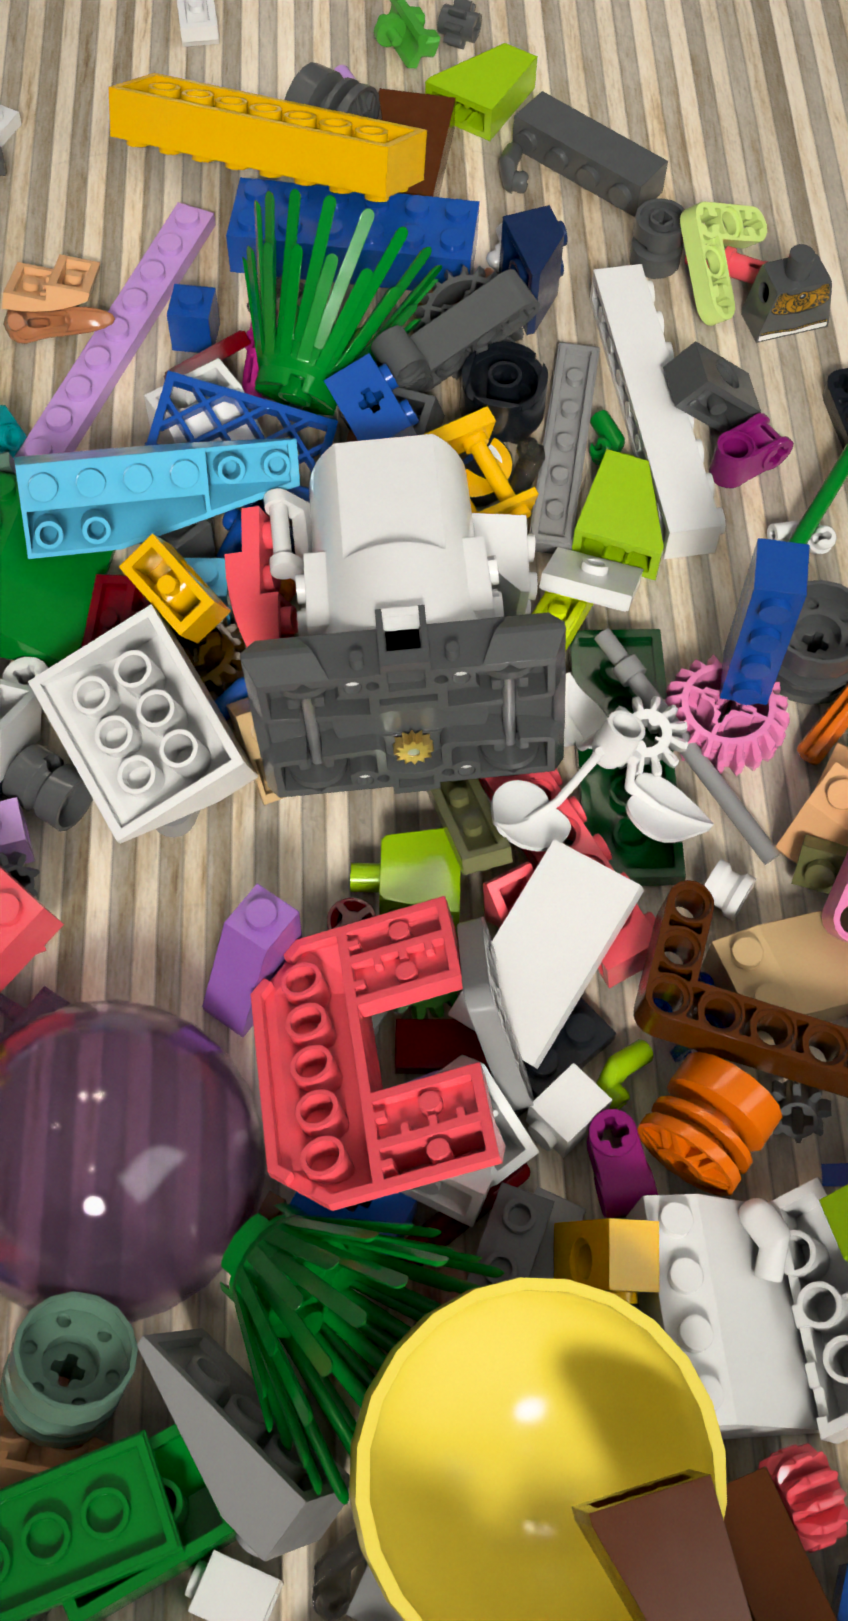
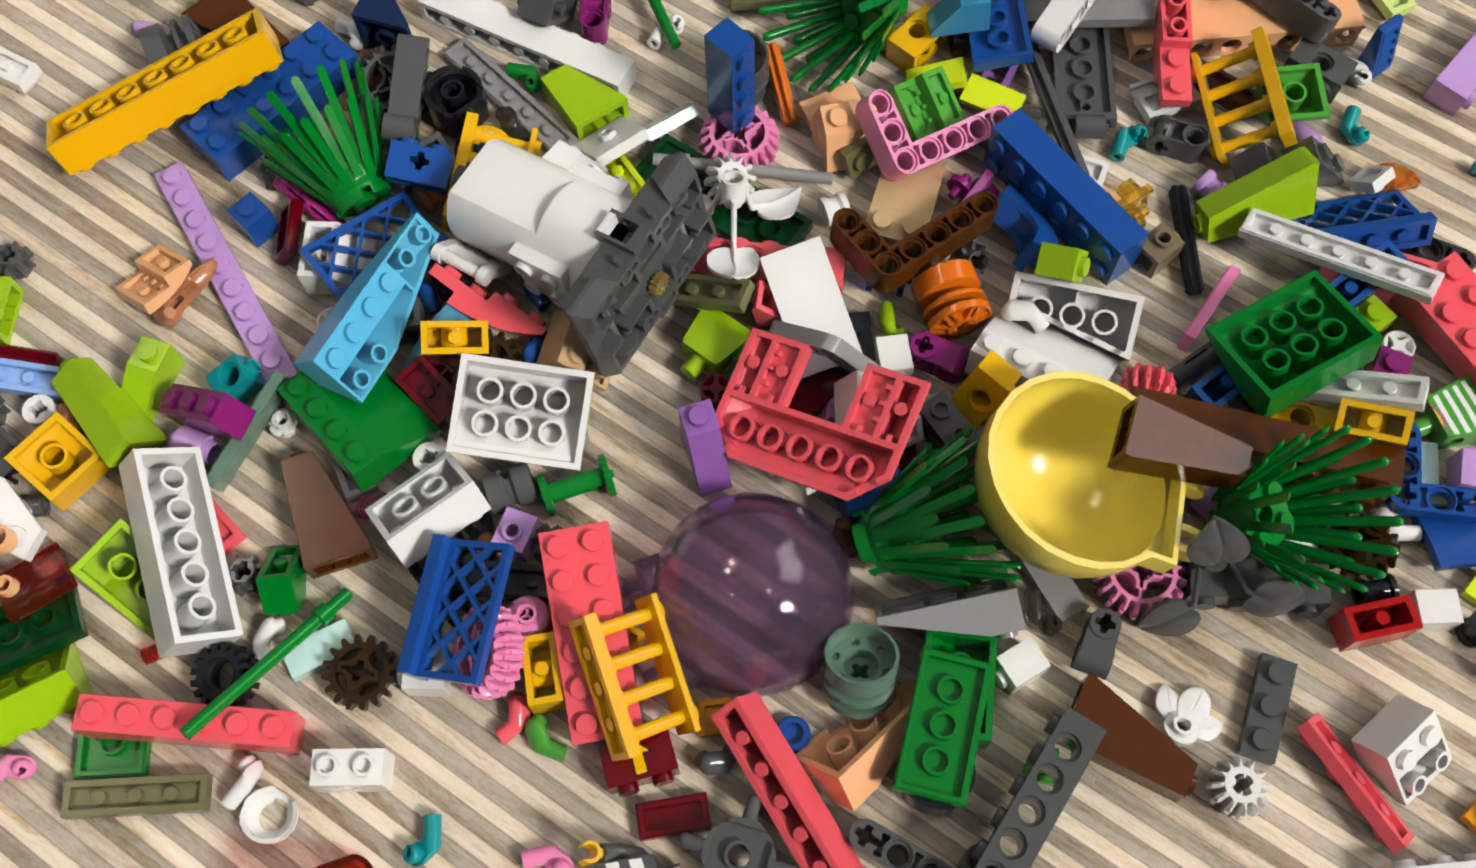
camera: 50 degrees left, 5 degrees up
(72, 834) = (576, 485): none -> green hose
(678, 622) = (671, 120): none -> light aqua tile

